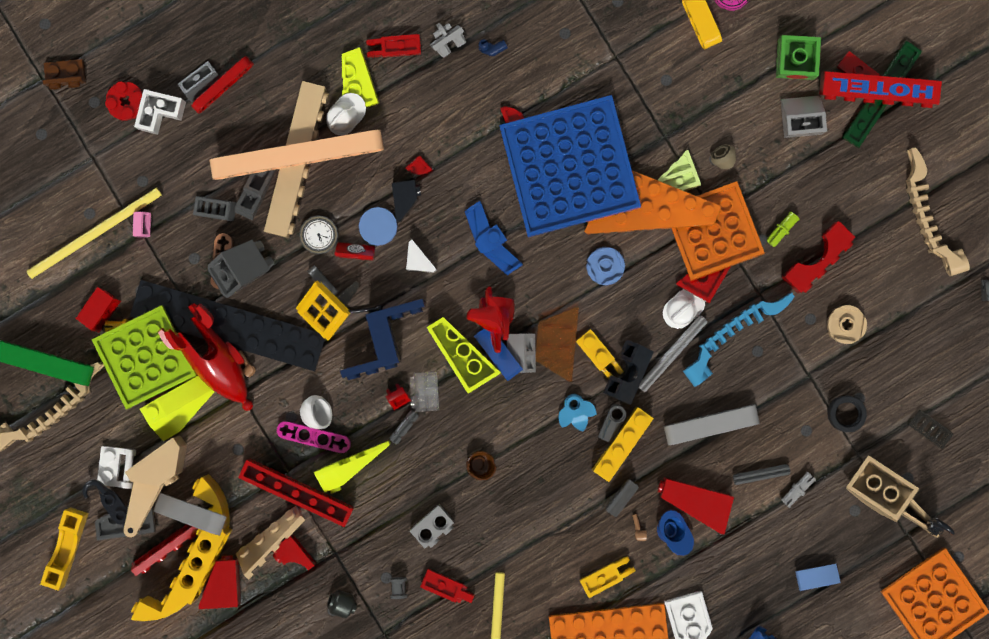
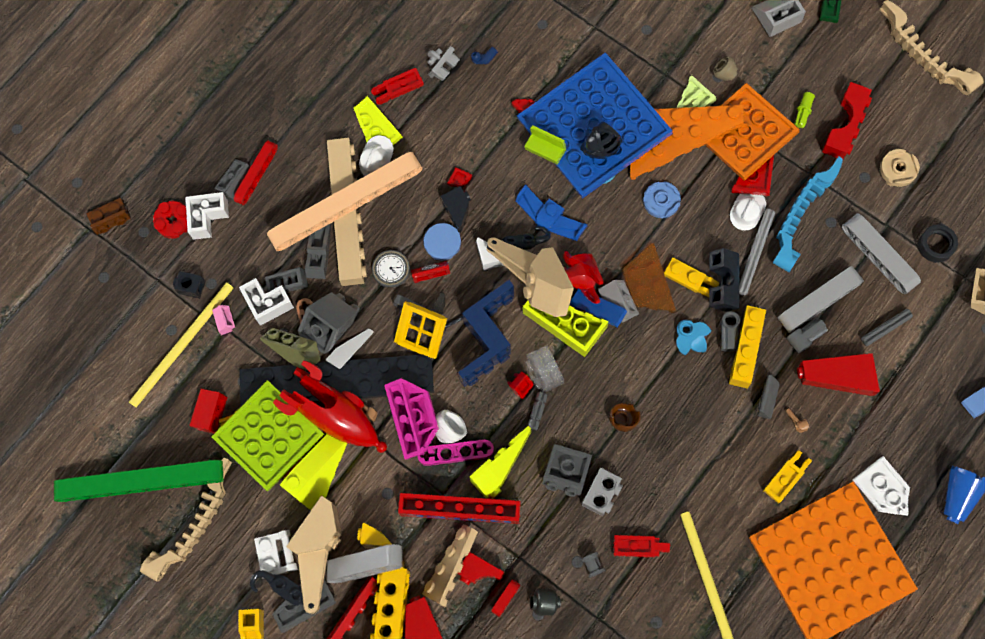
camera: 15 degrees left, 15 degrees down
(127, 180) = (194, 290): none -> black brick
(181, 225) = (268, 305): none -> white brick
(196, 278) = (292, 347): none -> olive slope
(247, 300) = (346, 350): none -> white sticker
(284, 392) = (412, 416): none -> dark pink wedge
(308, 587) = (505, 598): none -> red beam
(408, 494) = (566, 470): none -> dark grey plate
(454, 305) = (543, 274): none -> tan slope
(512, 172) = (545, 145): none -> lime panel
(565, 193) = (601, 143): none -> black helmet
(675, 533) = (830, 408): blue piece -> none
(677, 454) = (803, 338): none -> dark grey piece
(788, 402) = (881, 254): none -> light grey beam
(798, 489) = (927, 327): light grey pin -> none

